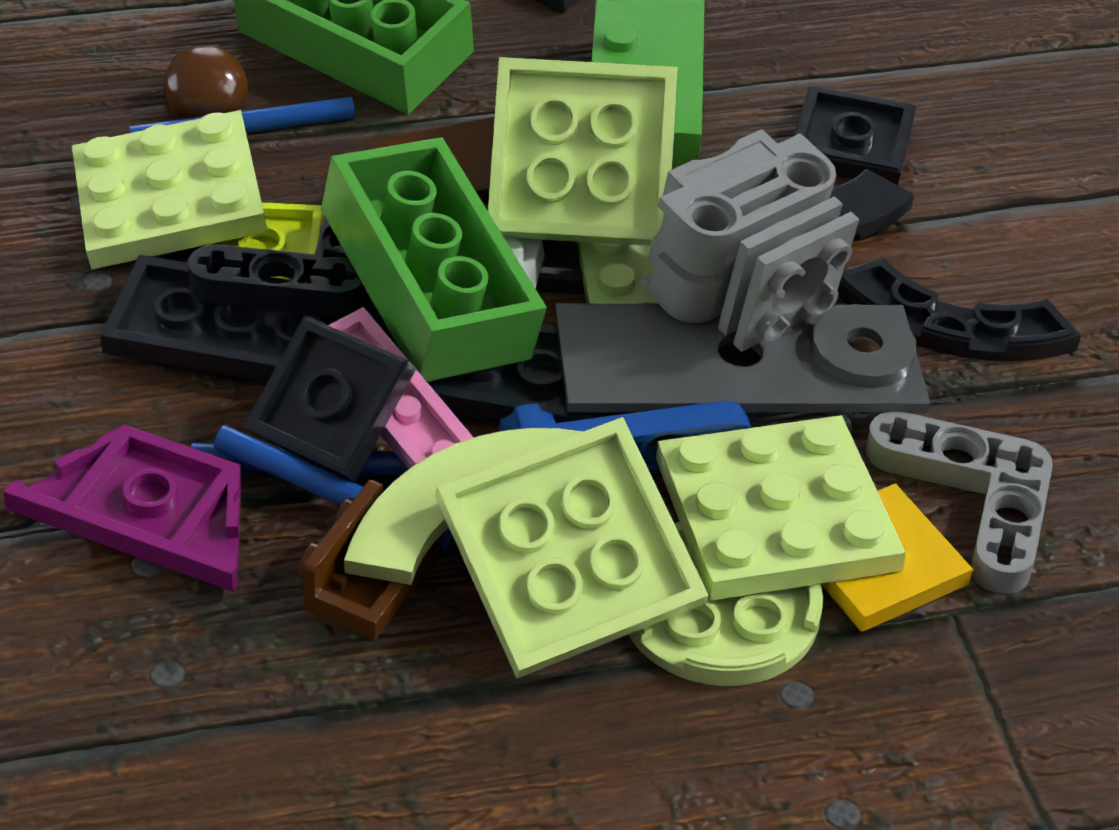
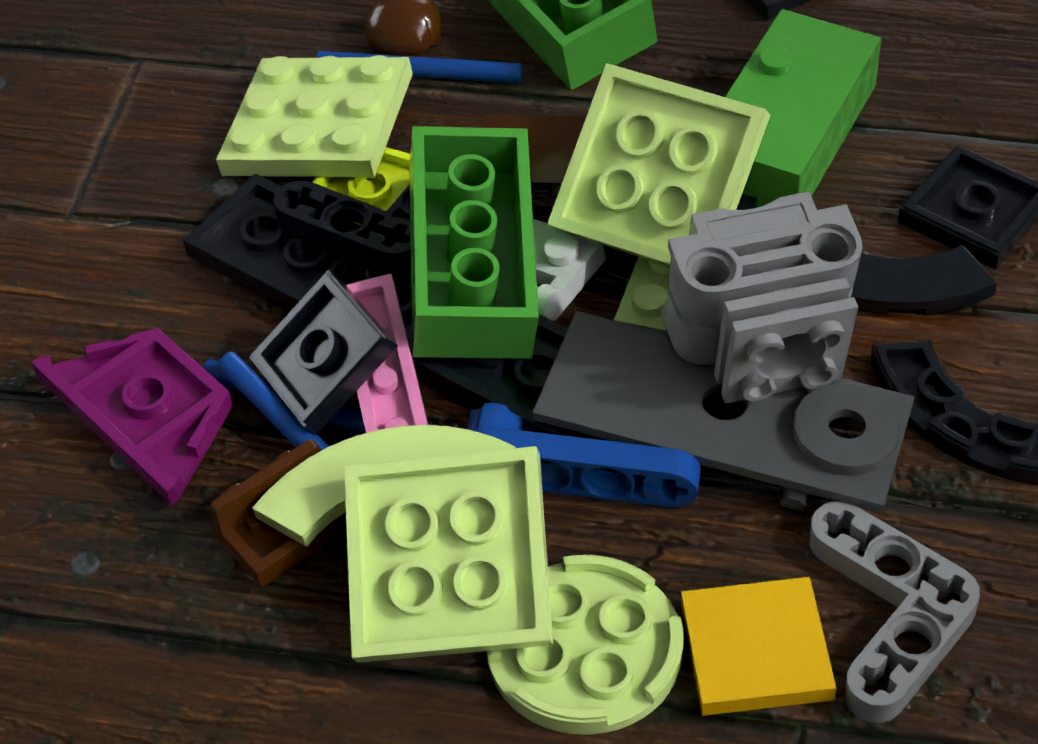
camera: 30 degrees right, 5 degrees up
(778, 507) = (677, 570): yellowish green plate -> none

